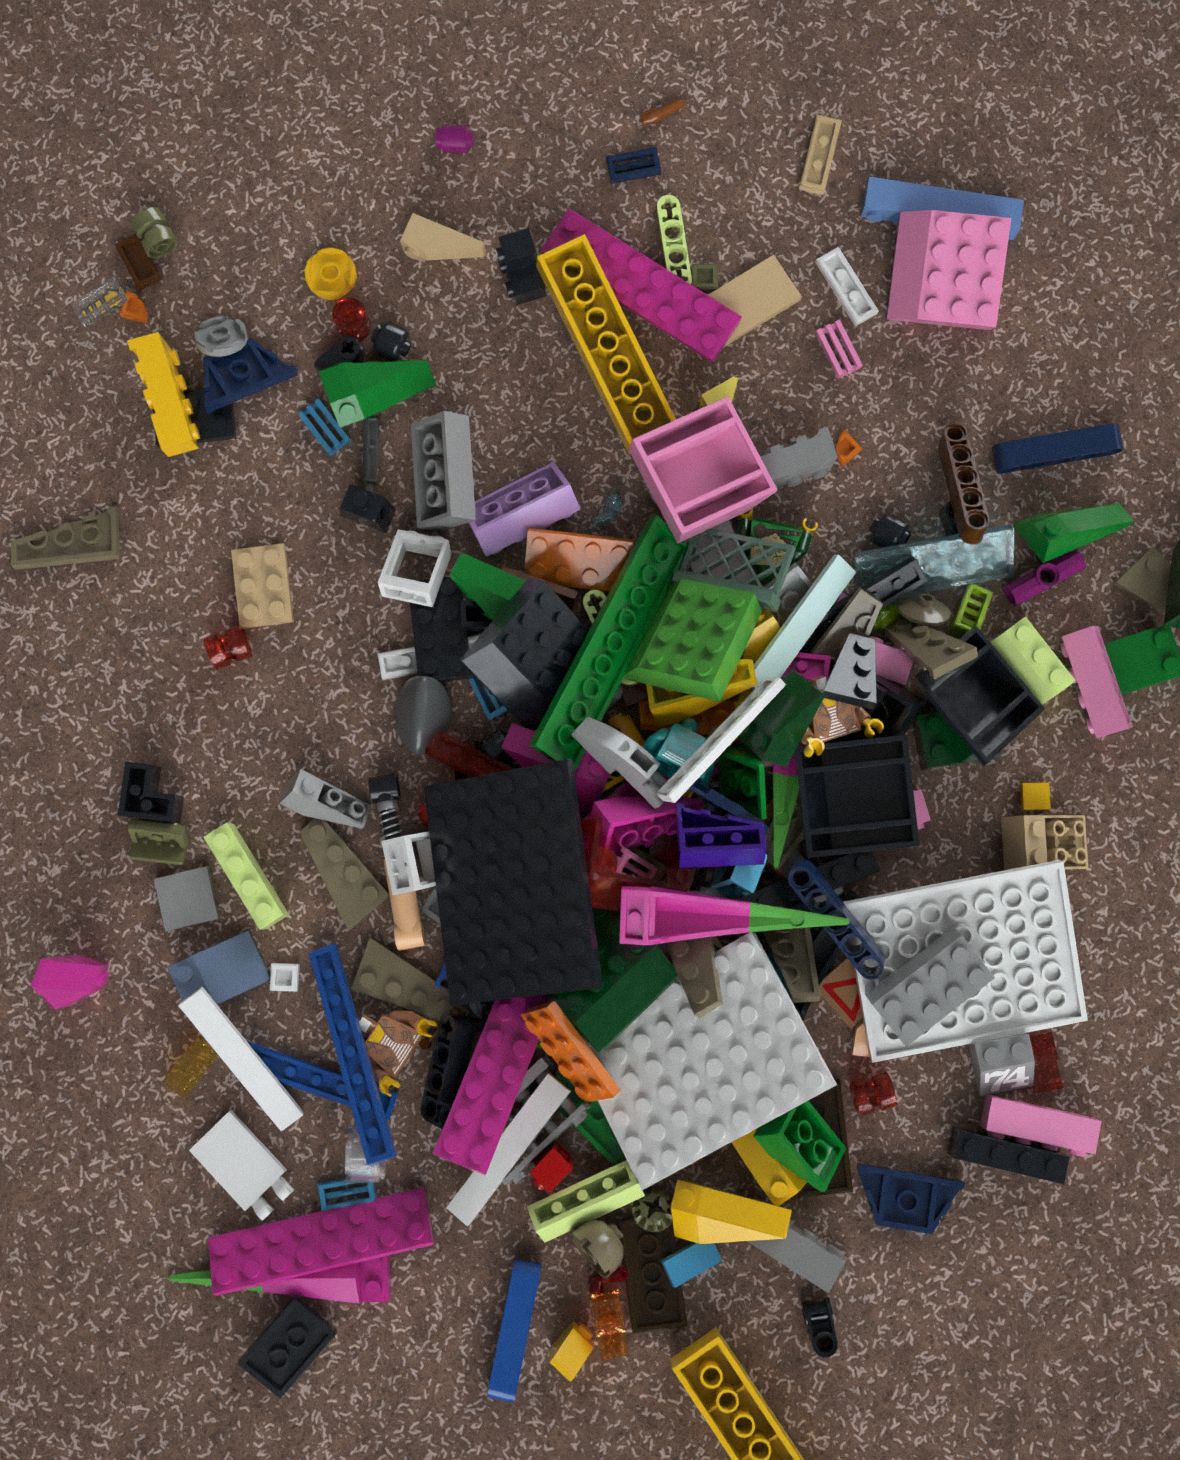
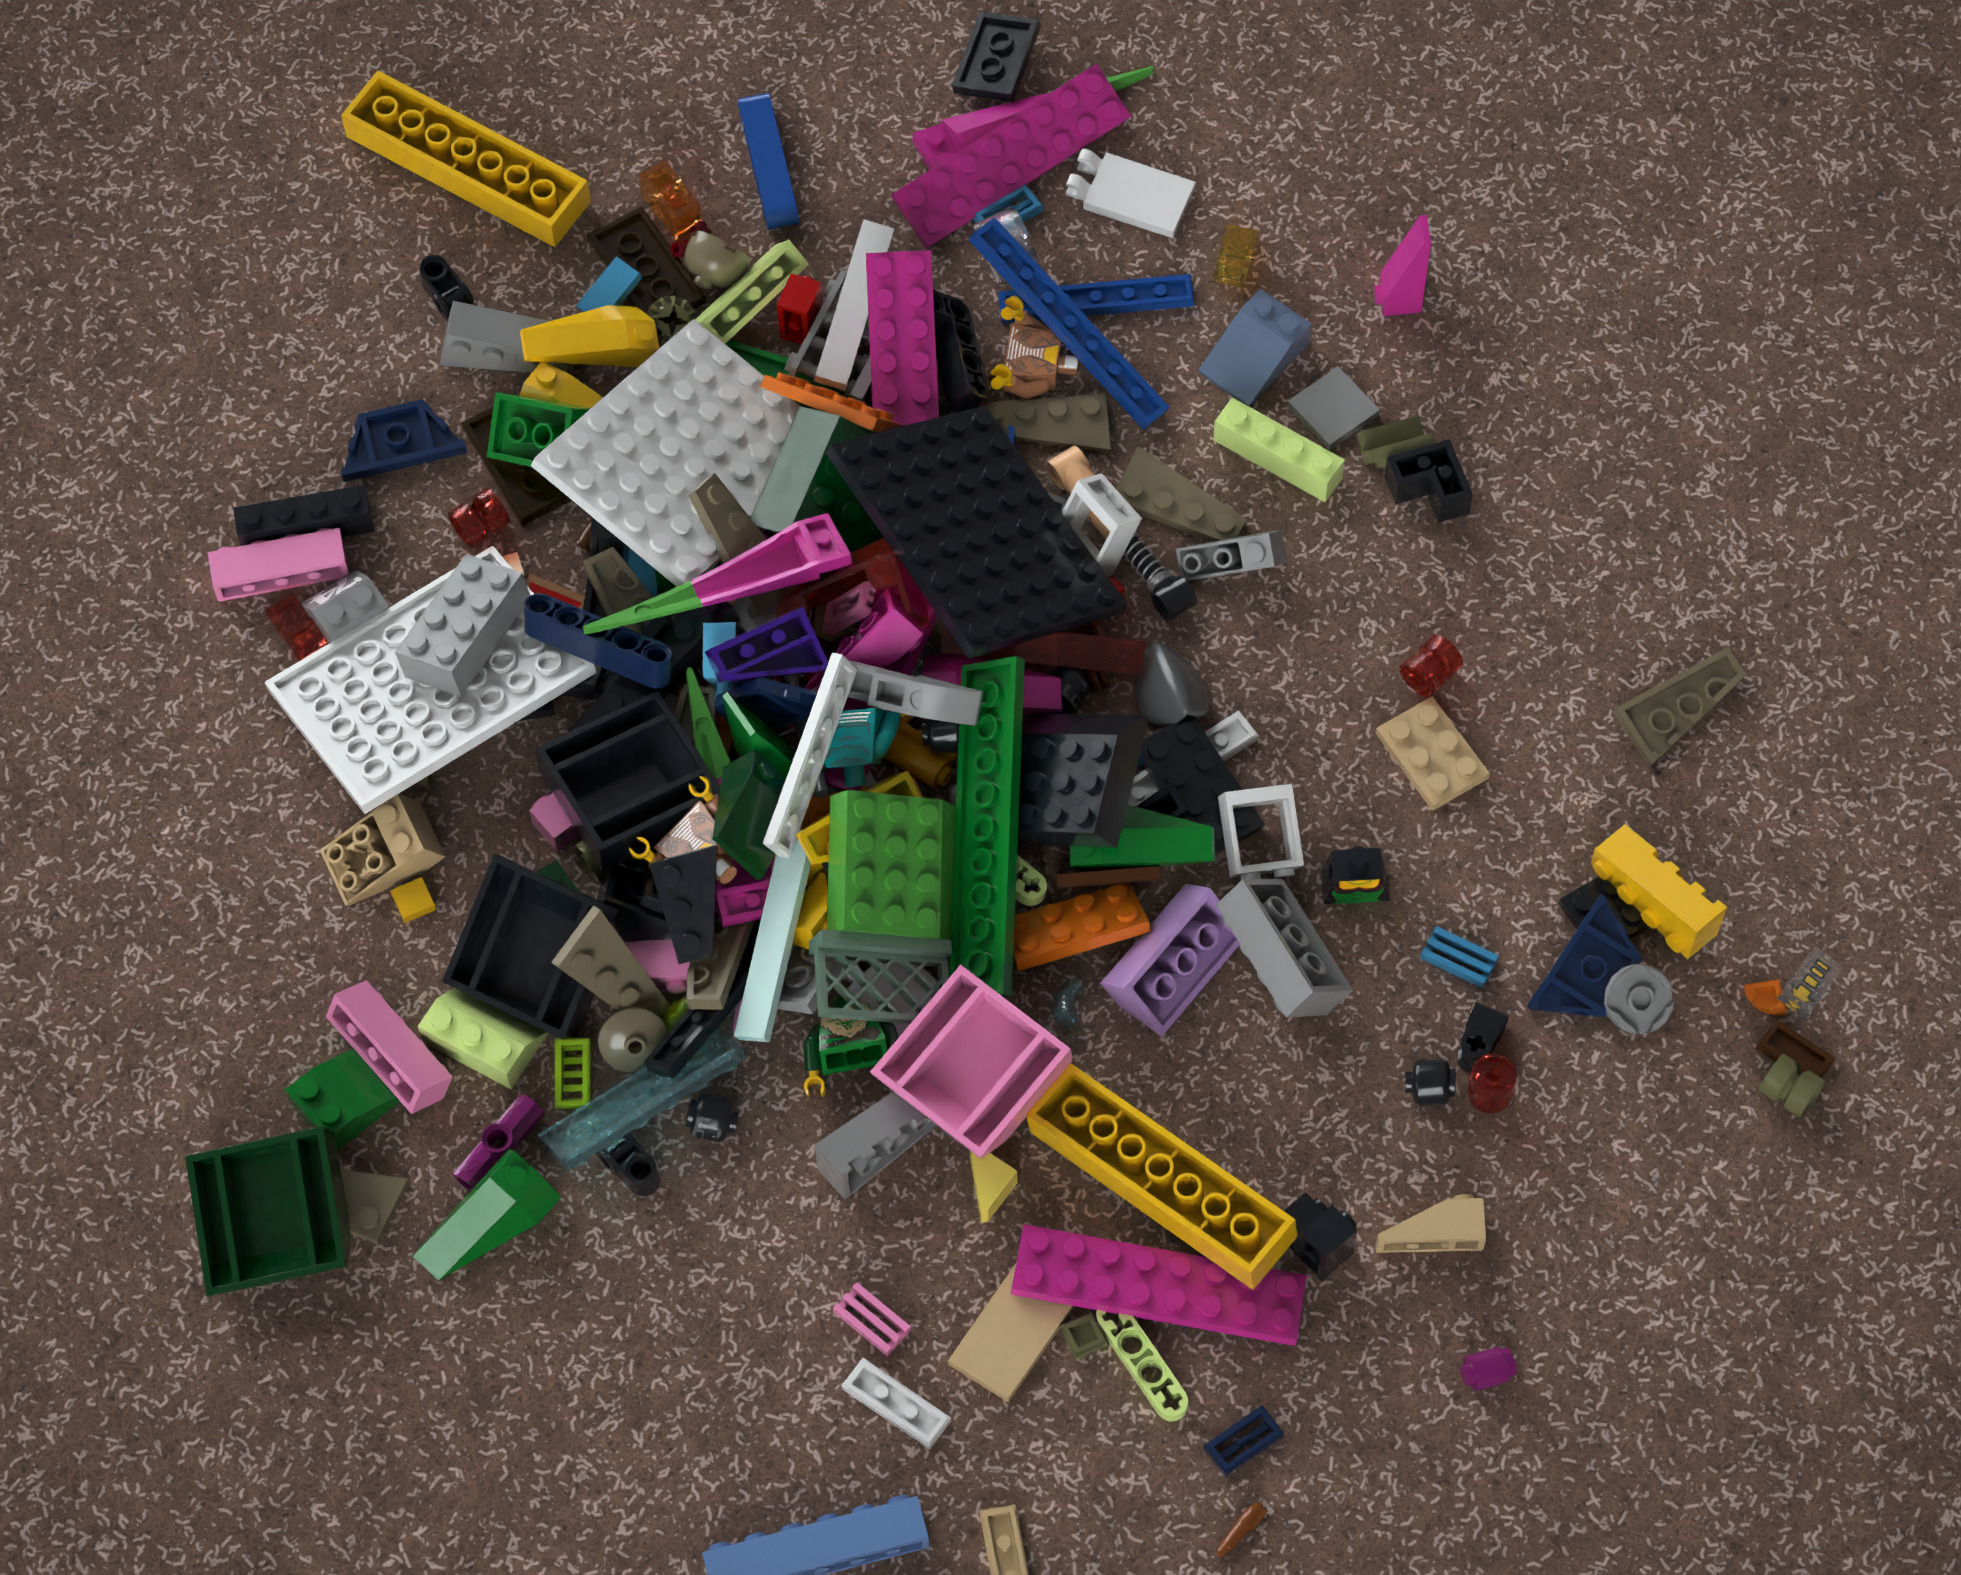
camera: 155 degrees right, 20 degrees down
(241, 1058) = (1184, 275): white tile -> none
(284, 977) = (1184, 378): white tile -> none
(335, 280) = (1548, 1150): yellow tile -> none
(370, 453) = (1386, 947): dark grey piece -> none
(372, 386) = (1429, 1003): green wedge -> none
(571, 1350) = (700, 159): yellow slope -> none
(846, 448) = (808, 1201): orange tile -> none
(948, 269) = (773, 1458): bright pink slope -> none
(963, 484) = (661, 1204): reddish brown beam -> none
(1057, 448) = (541, 1307): dark blue beam -> none

